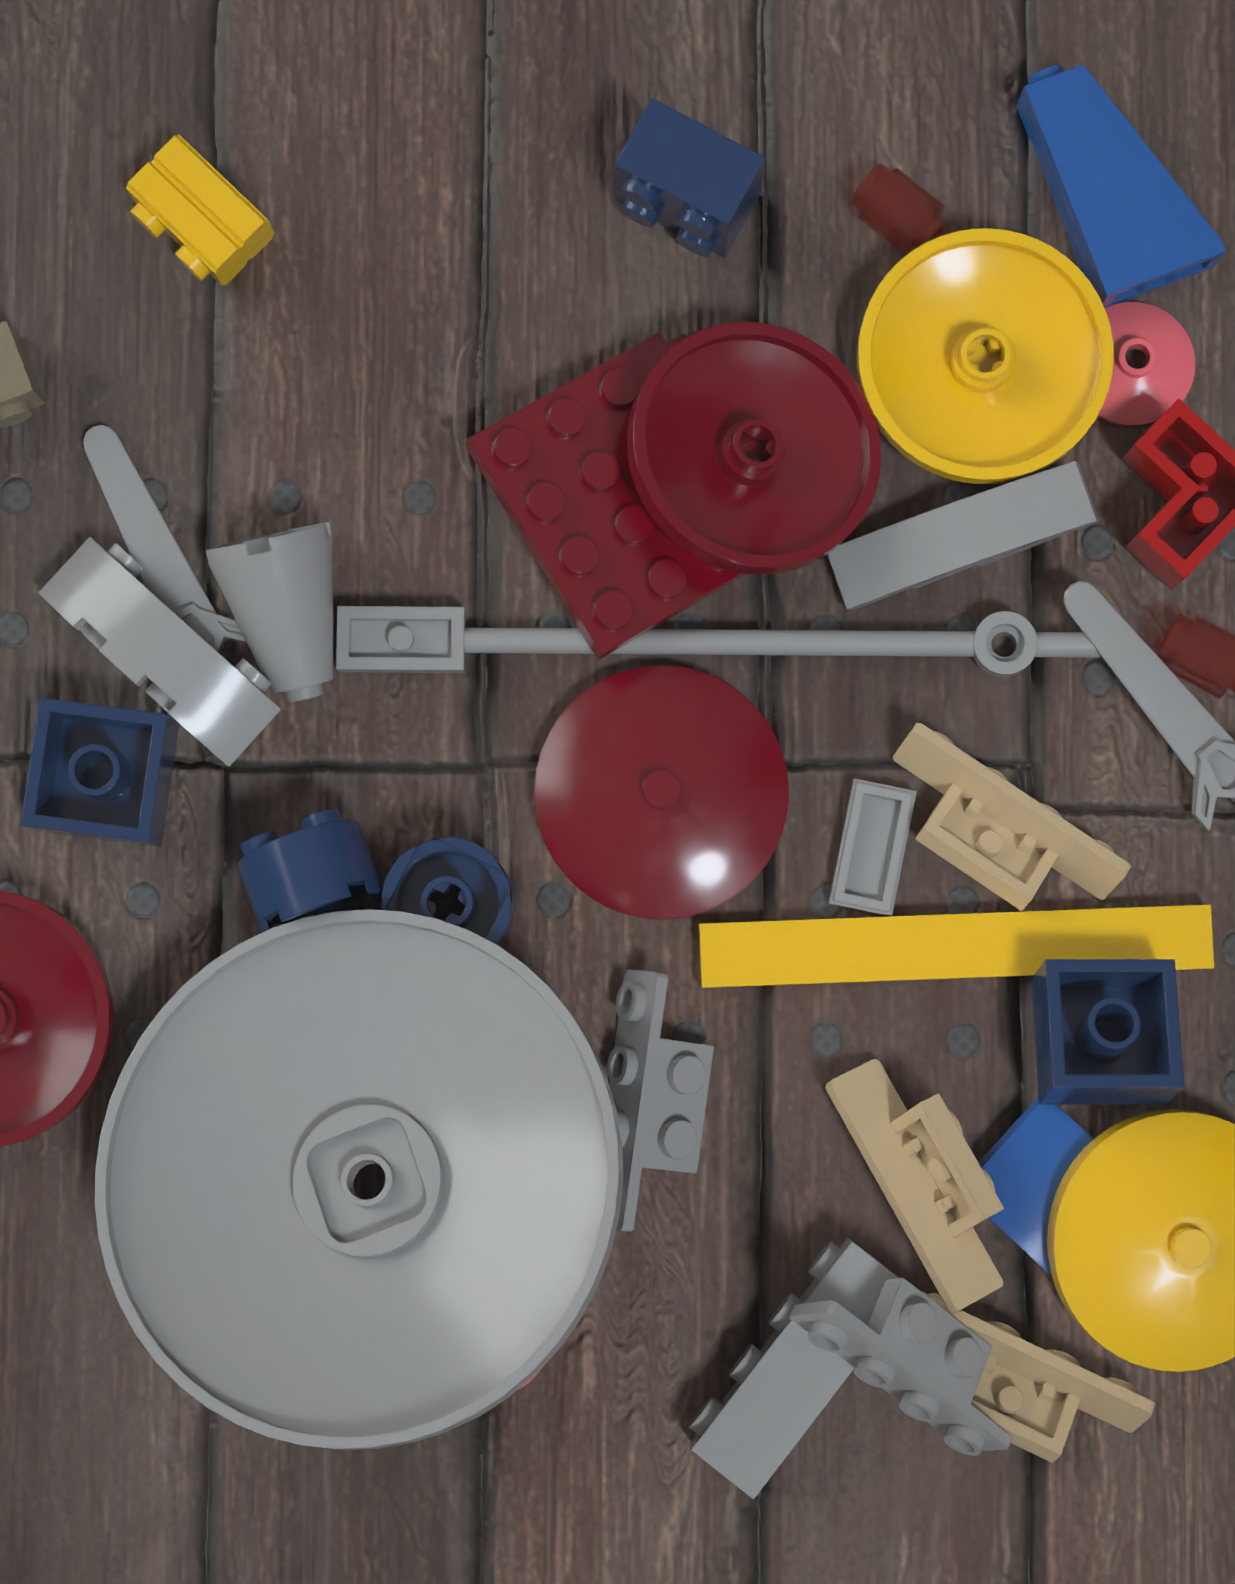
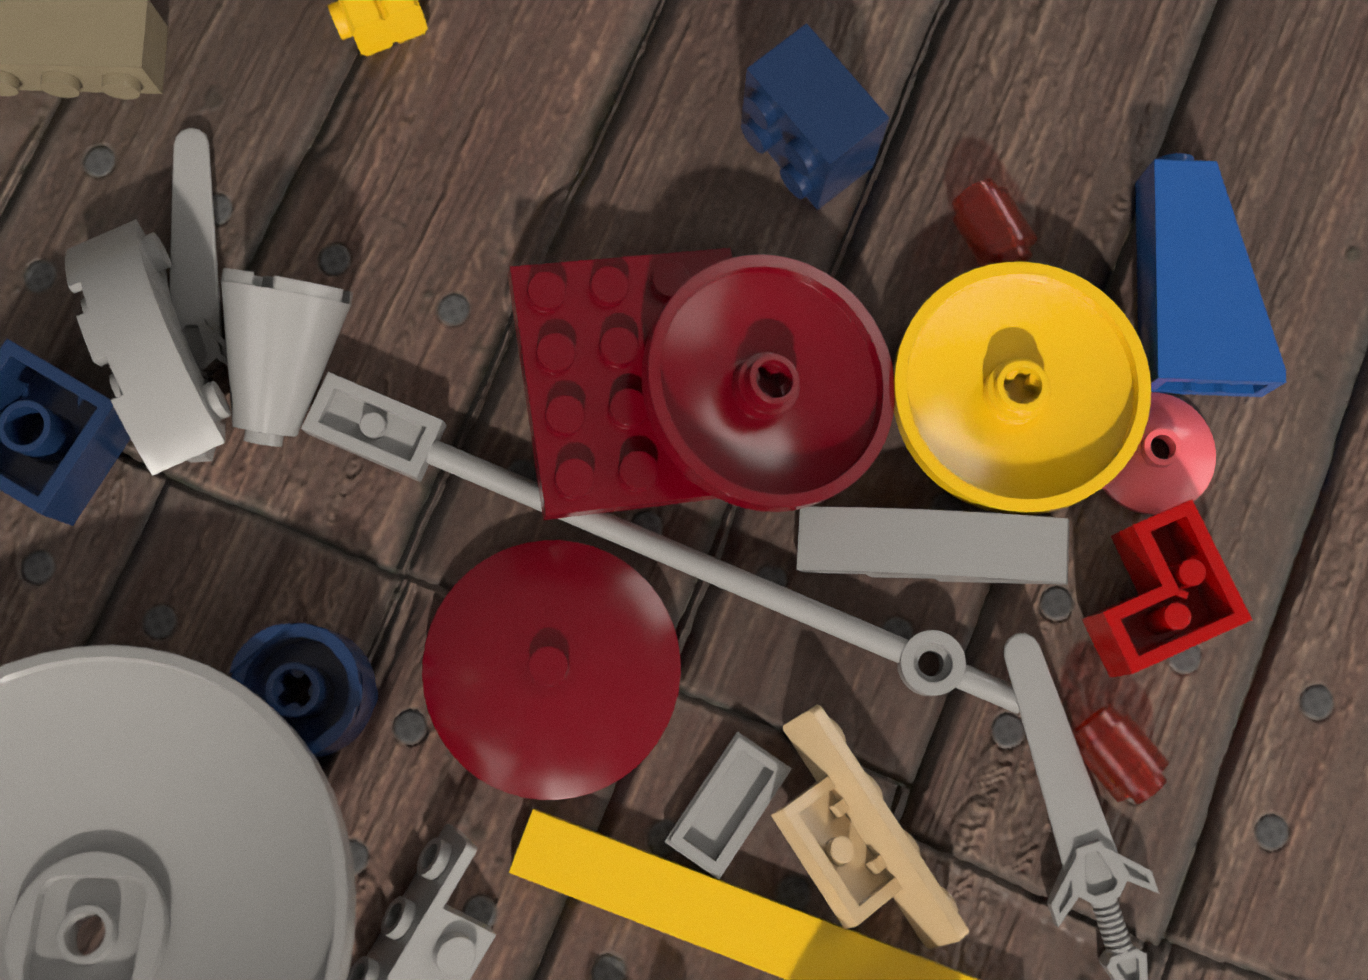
camera: 15 degrees right, 5 degrees down
(308, 871) = (182, 607): dark blue brick -> none

